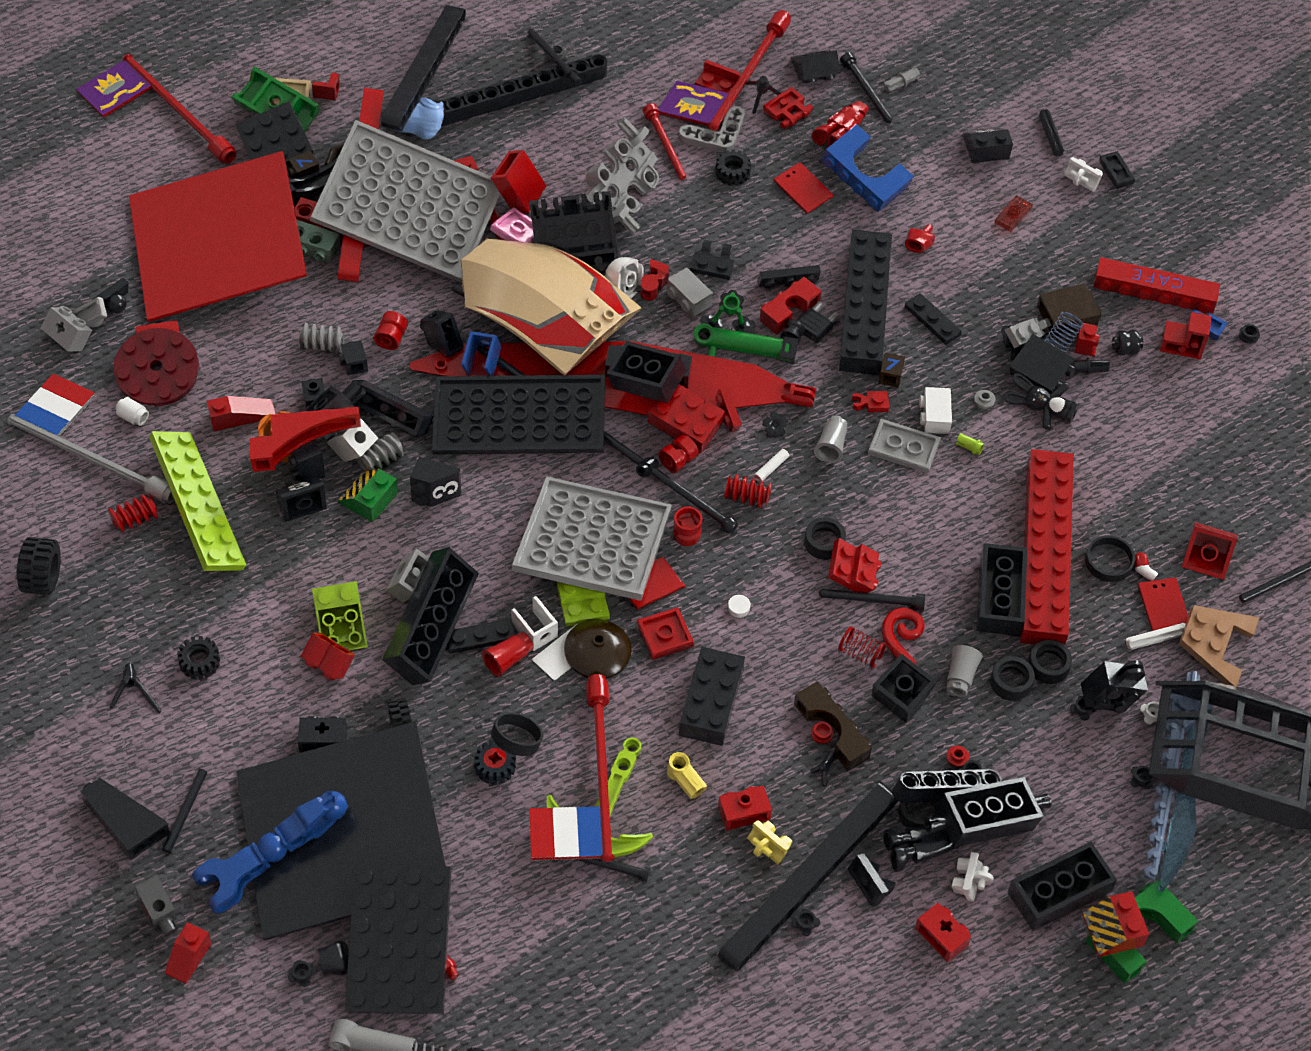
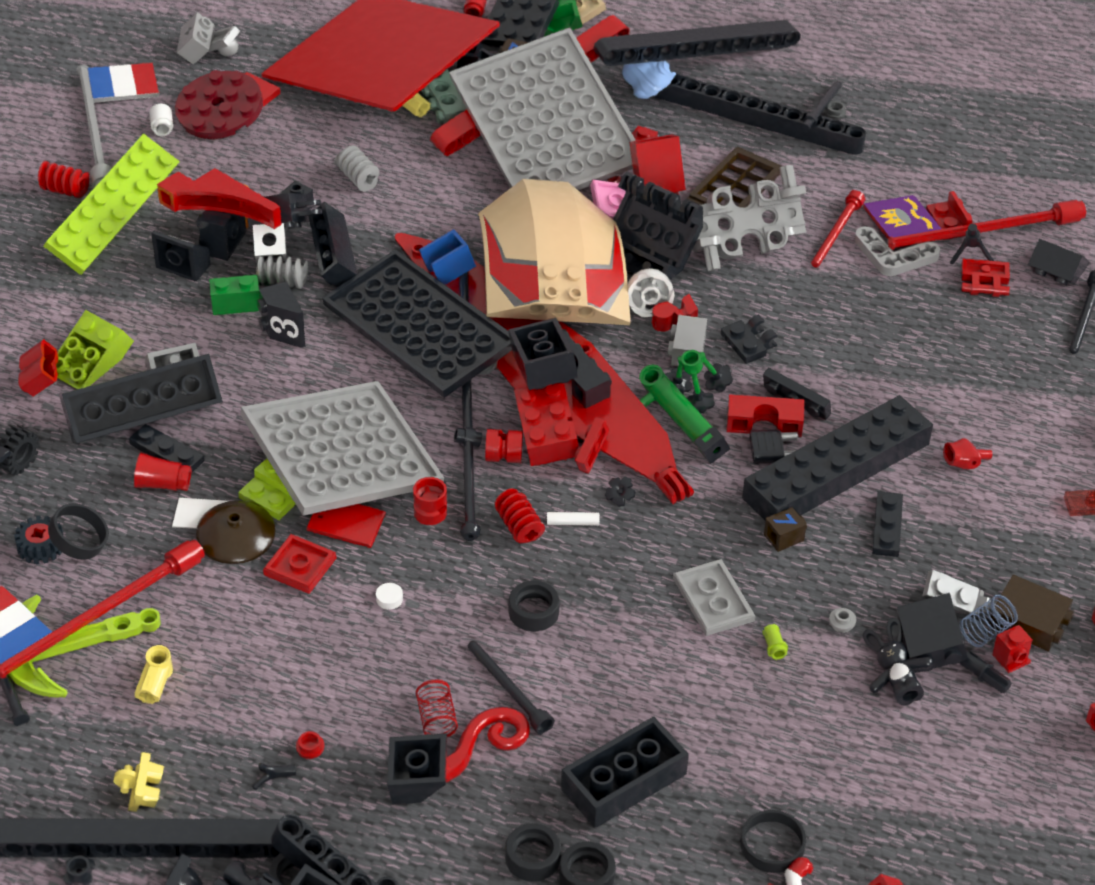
camera: 50 degrees right, 10 degrees down
(114, 296) = (257, 42): black tile -> none
(237, 411) = (224, 161): red slope -> none
(327, 90) = (621, 13): red panel -> none
(353, 357) = (361, 197): black brick -> none
(390, 330) = (416, 198): red wheel -> none
(442, 332) = (444, 219): black torso -> none
(545, 617) = (218, 481): white piece -> none
(564, 186) = (727, 163): none -> dark brown piece
(711, 696) = (261, 636): black brick -> none
(733, 176) = (867, 294): black tyre -> none
(744, 807) = (162, 738): red brick -> none
(793, 329) = (738, 436): black wheel -> none
(803, 187) = (913, 344): red container -> none
(816, 704) = (313, 773): dark brown arch -> none
(832, 440) = (650, 537): light grey plant -> none
(840, 123) = (1016, 321): red piece -> none
(854, 566) = (520, 643): red plate -> none
(873, 190) = (975, 389): blue arch -> none
(874, 401) = (736, 544): red plate -> none
(936, 410) = (780, 591): white brick -> none
(957, 761) = (397, 873): red plate -> none
(962, 669) = (494, 804): light grey plant -> none
(1049, 546) = (719, 778): red brick -> none
(1127, 342) = (1053, 683): black piece -> none

